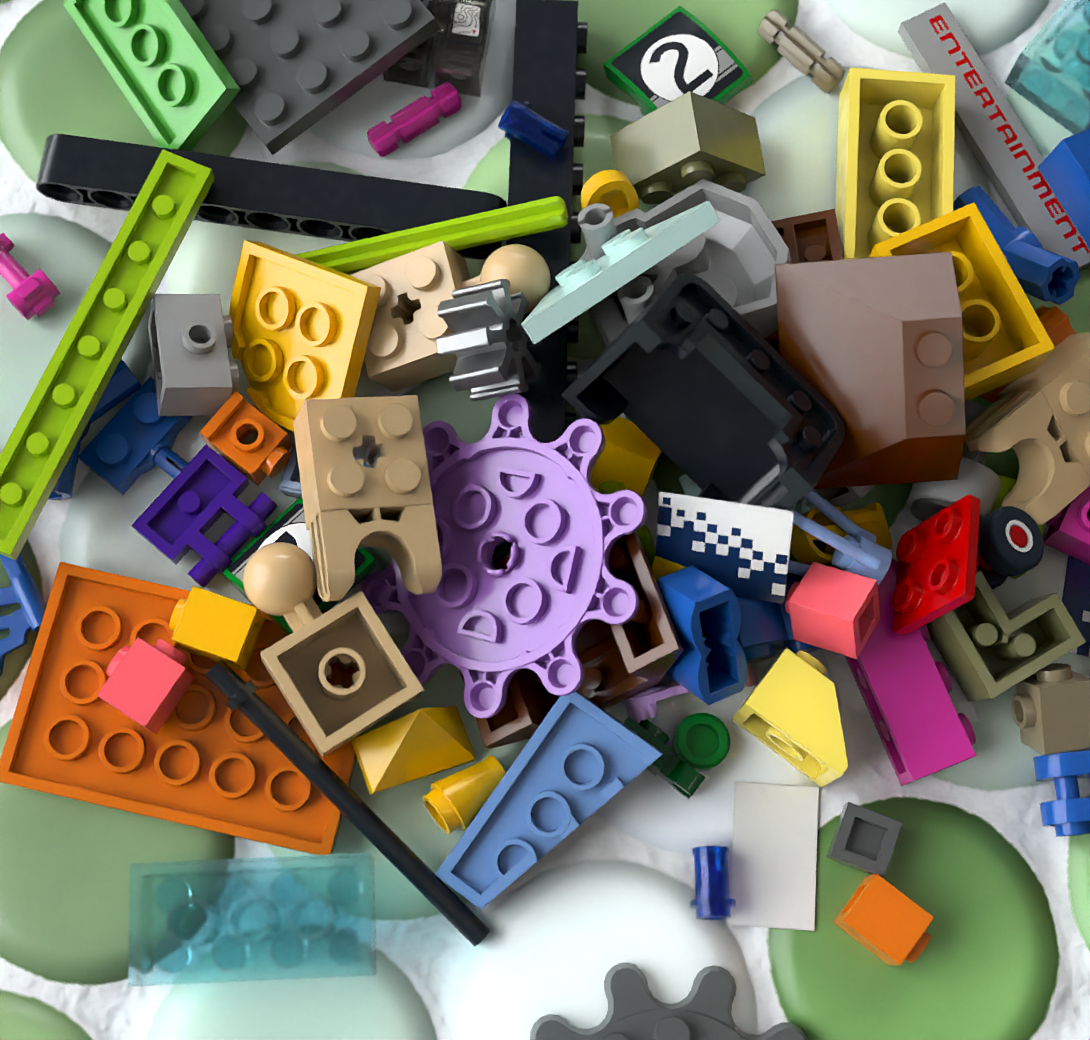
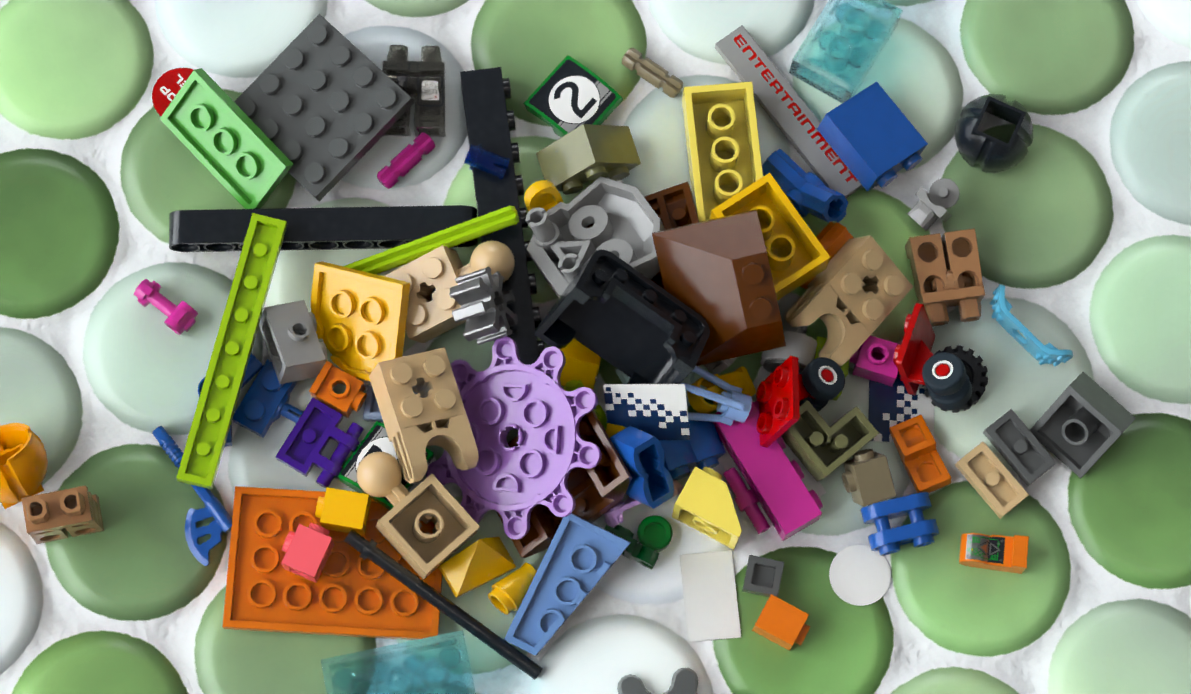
camera: 10 degrees left, 0 degrees up
(624, 259) = (559, 244): light aqua wing -> none
(711, 883) = (673, 618): clear blue pin -> none
(833, 609) = (721, 438): coral brick -> none
(855, 714) = (746, 500): none -> dark pink bar
(1016, 861) = (859, 575): none -> white sticker

